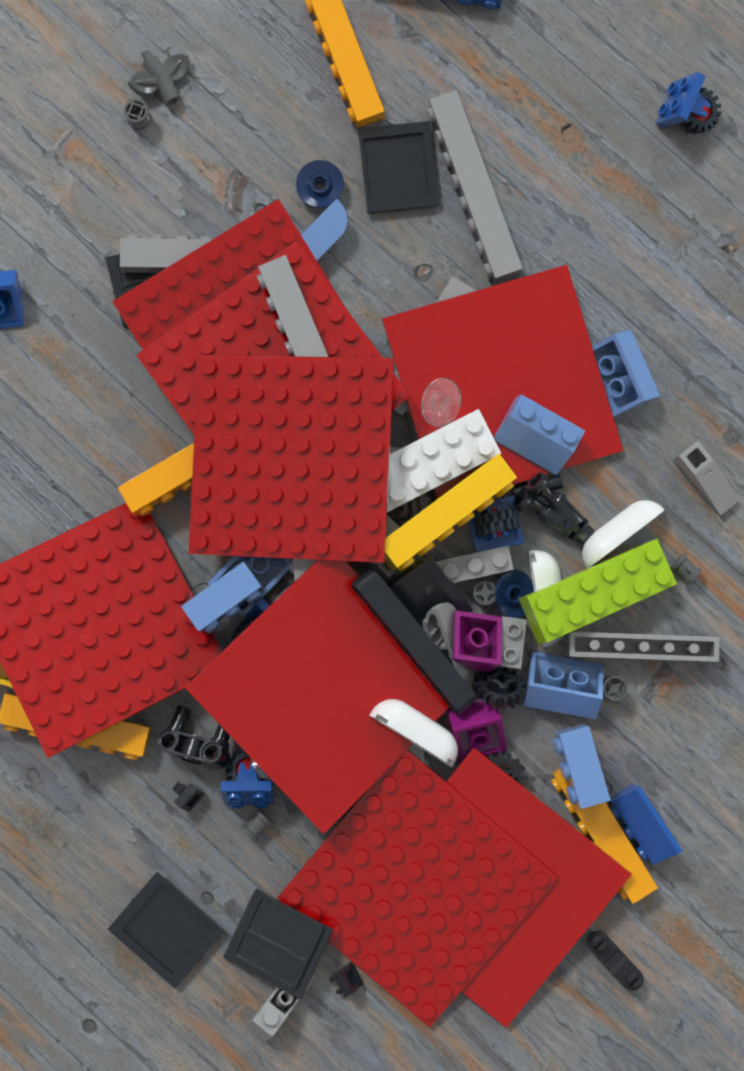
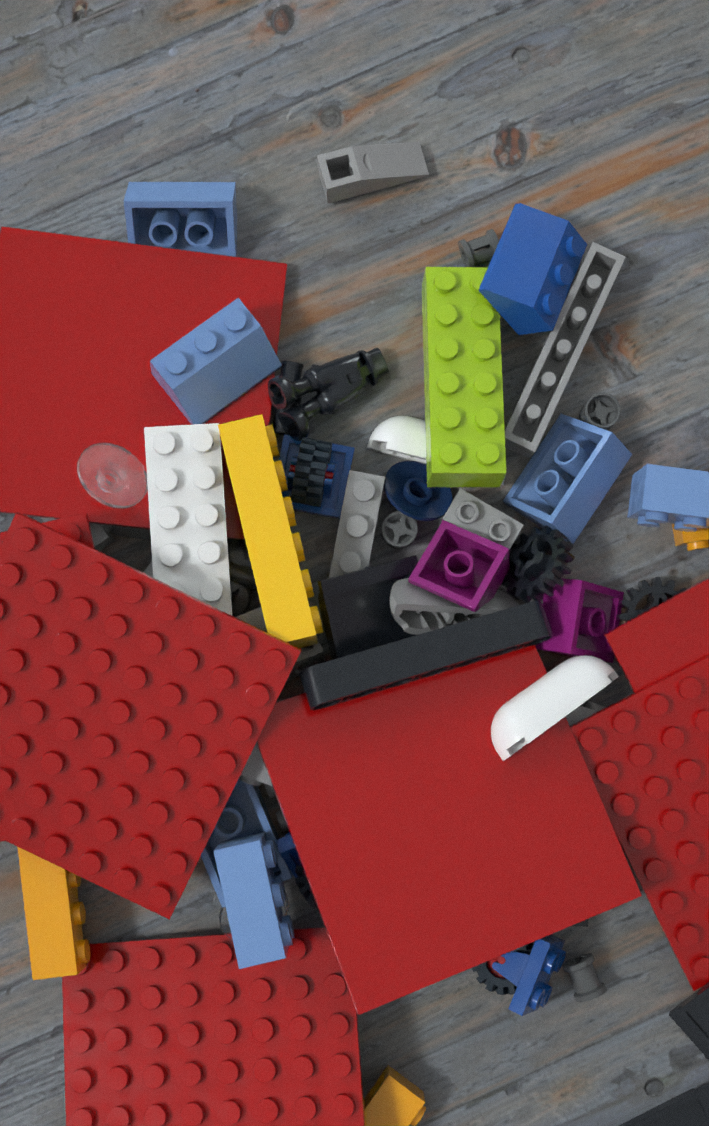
camera: 65 degrees left, 0 degrees up
(188, 795) = (504, 1058): black tile -> none
(193, 747) = (441, 1025): black piece -> none
(618, 530) = (392, 315): white brick -> none
(685, 606) = (532, 269): none -> blue slope

